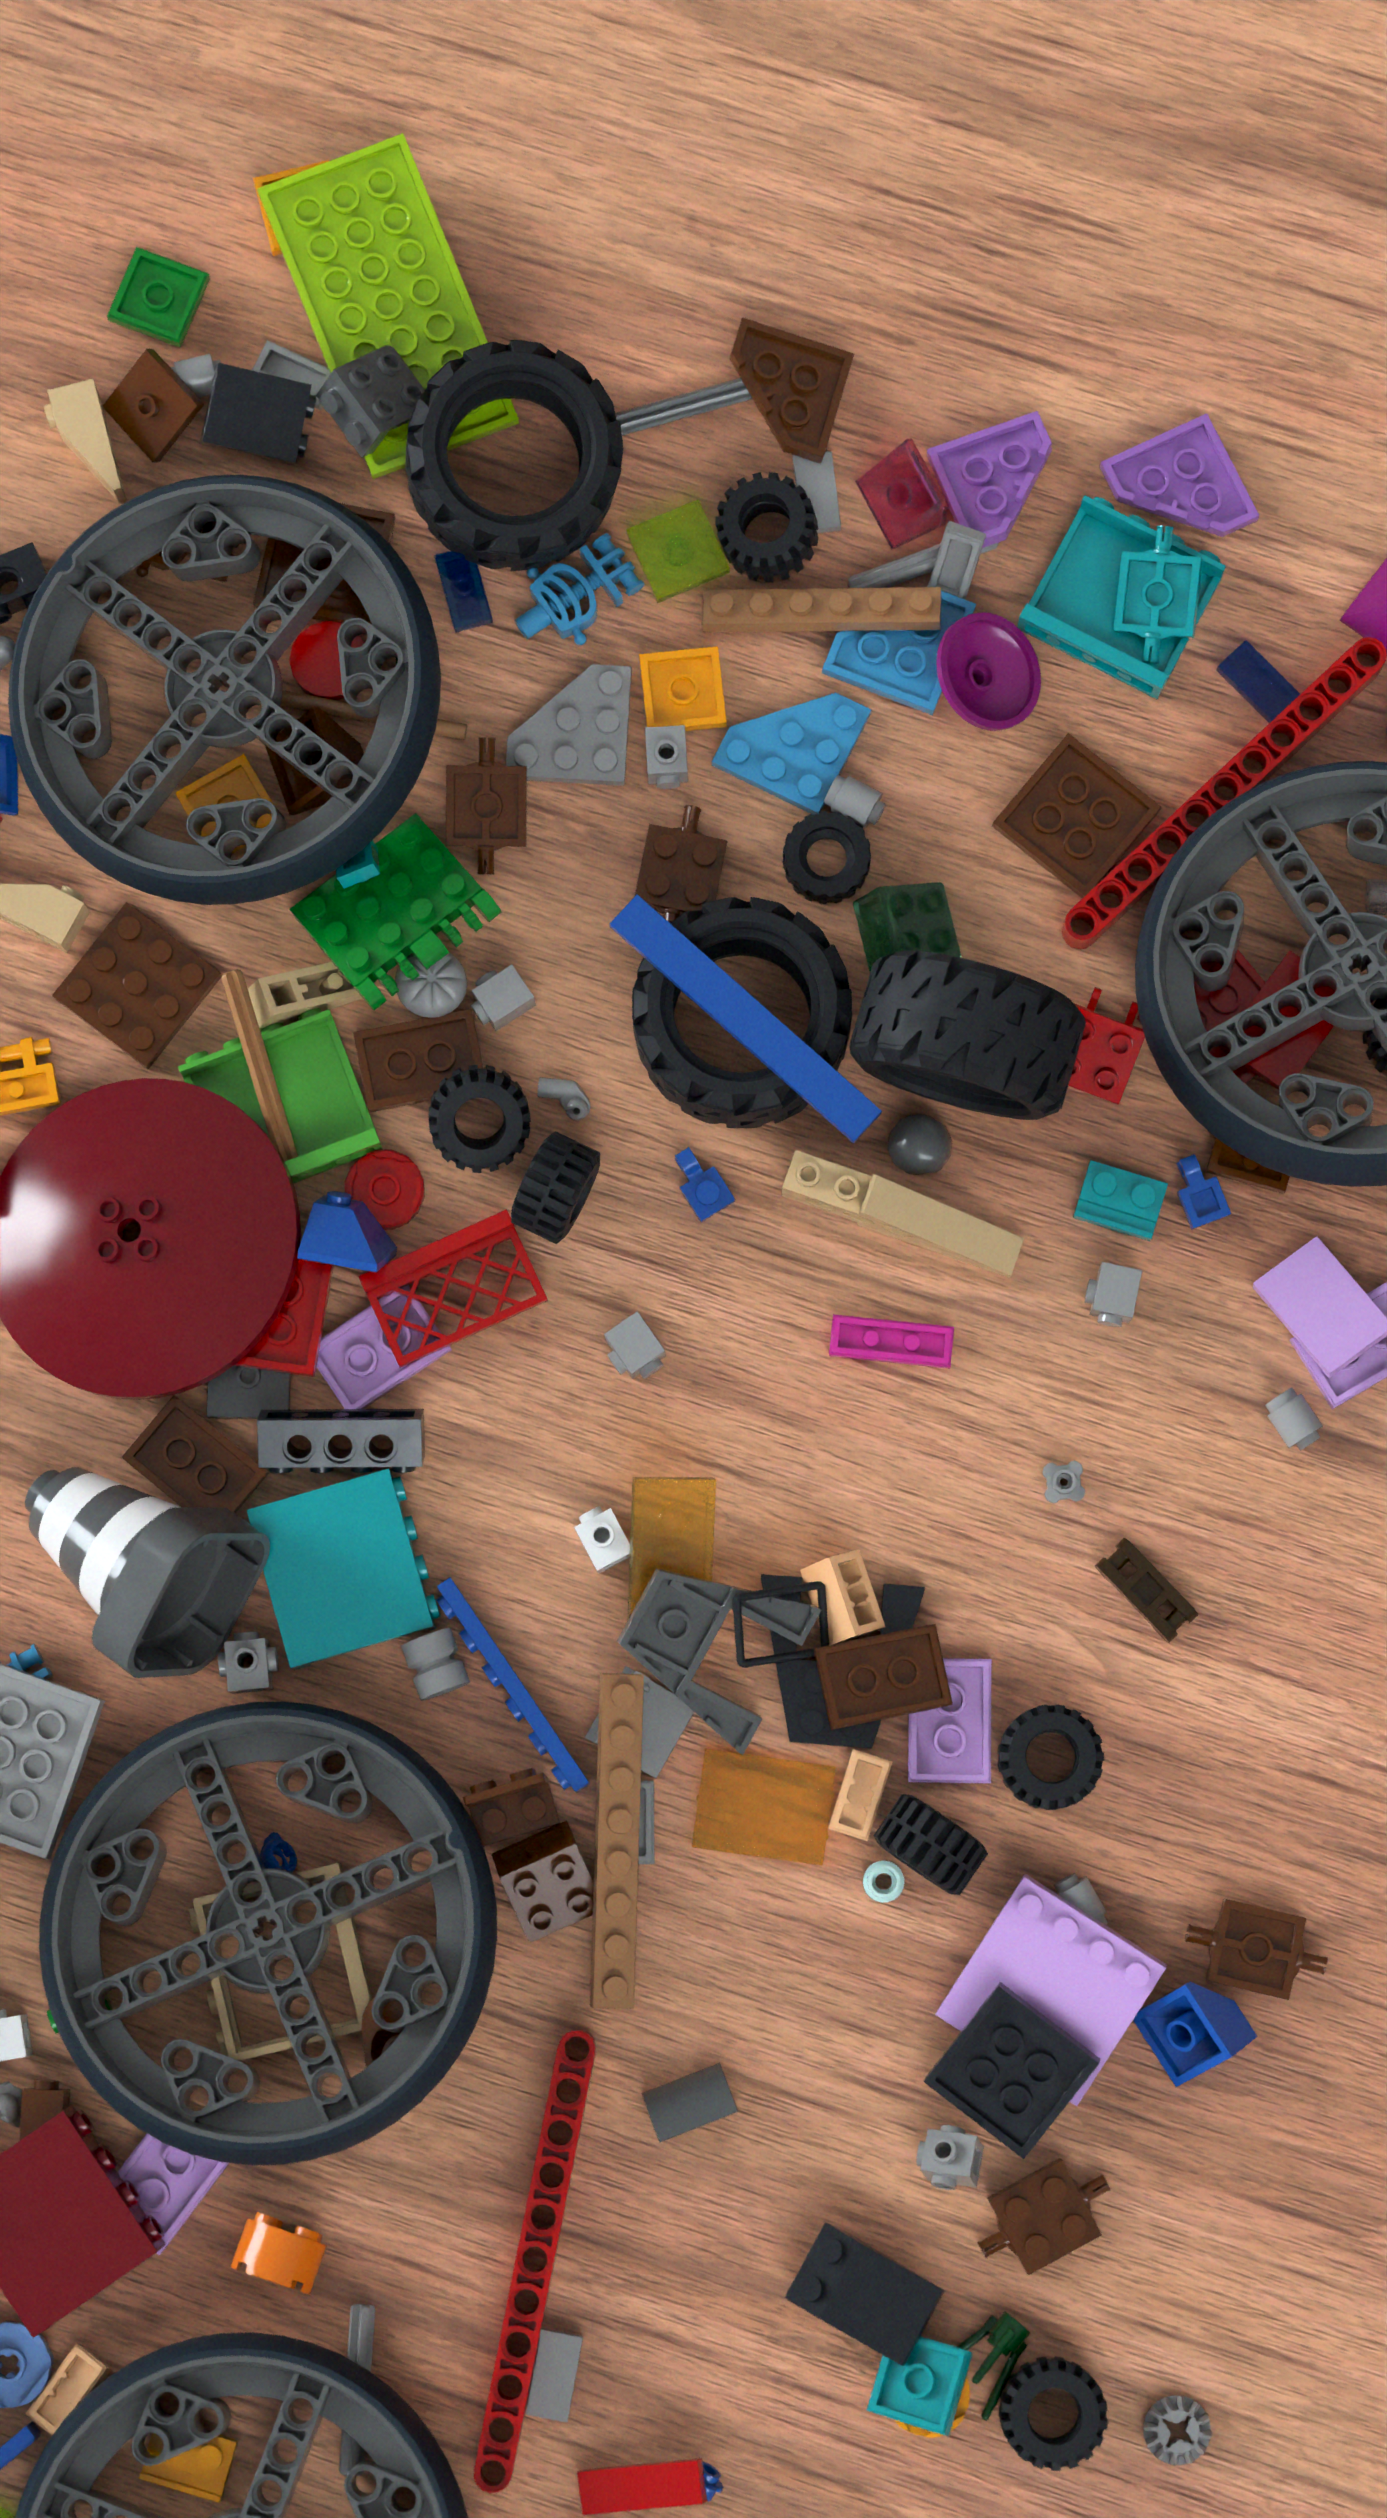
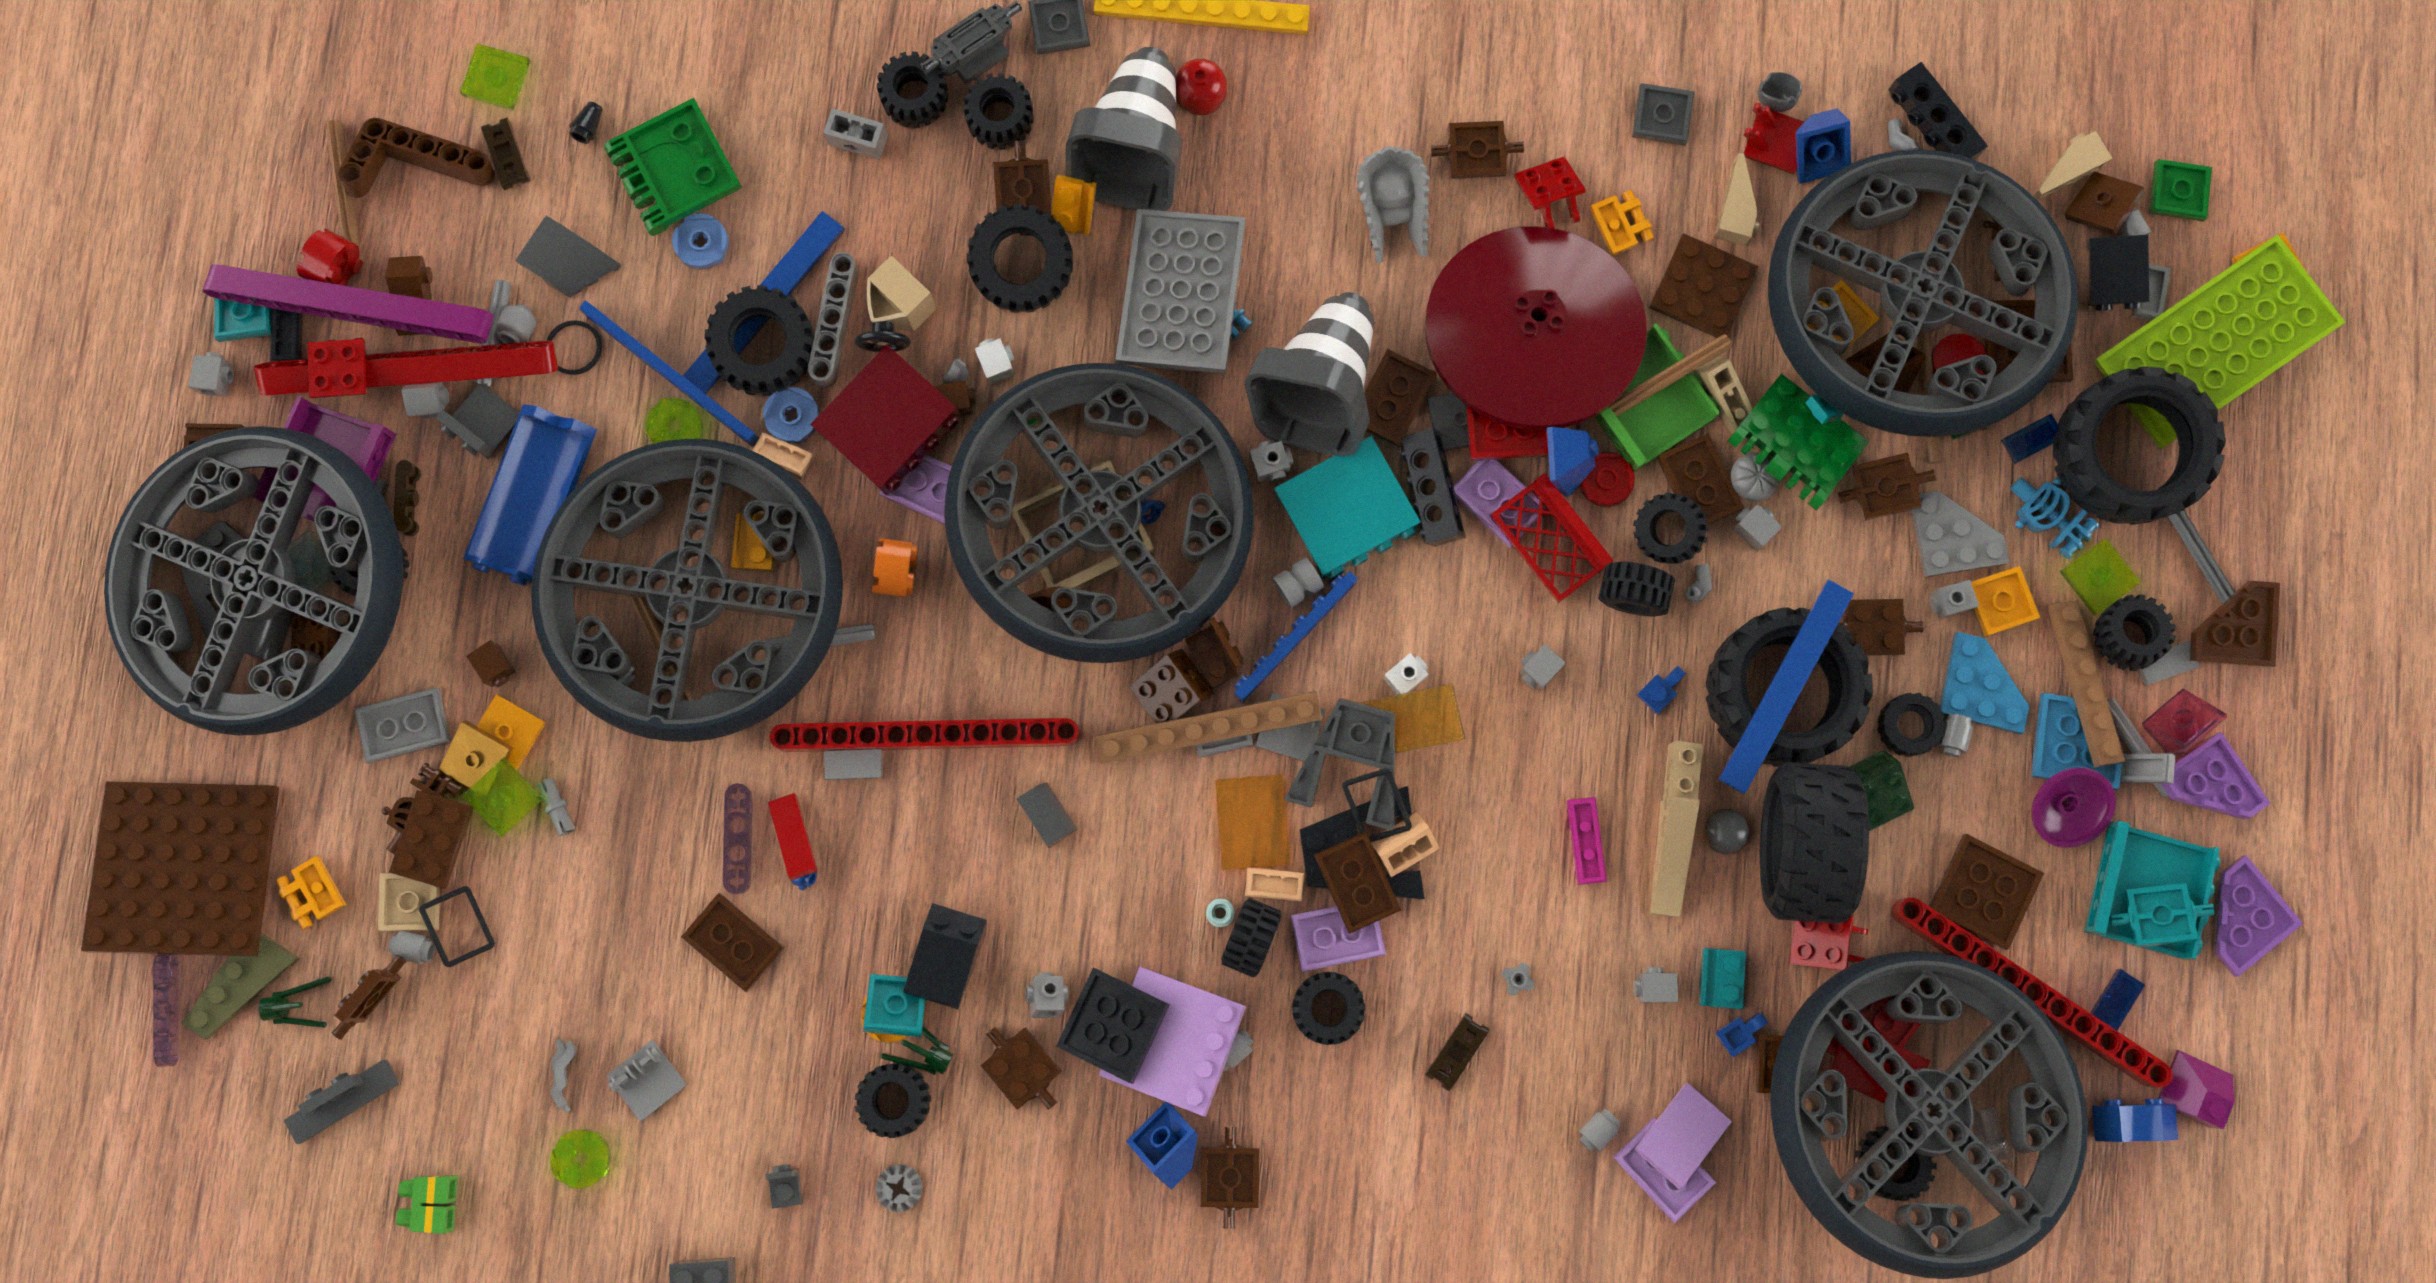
camera: 75 degrees right, 0 degrees up
(370, 397) = (2151, 341): dark grey bracket -> none

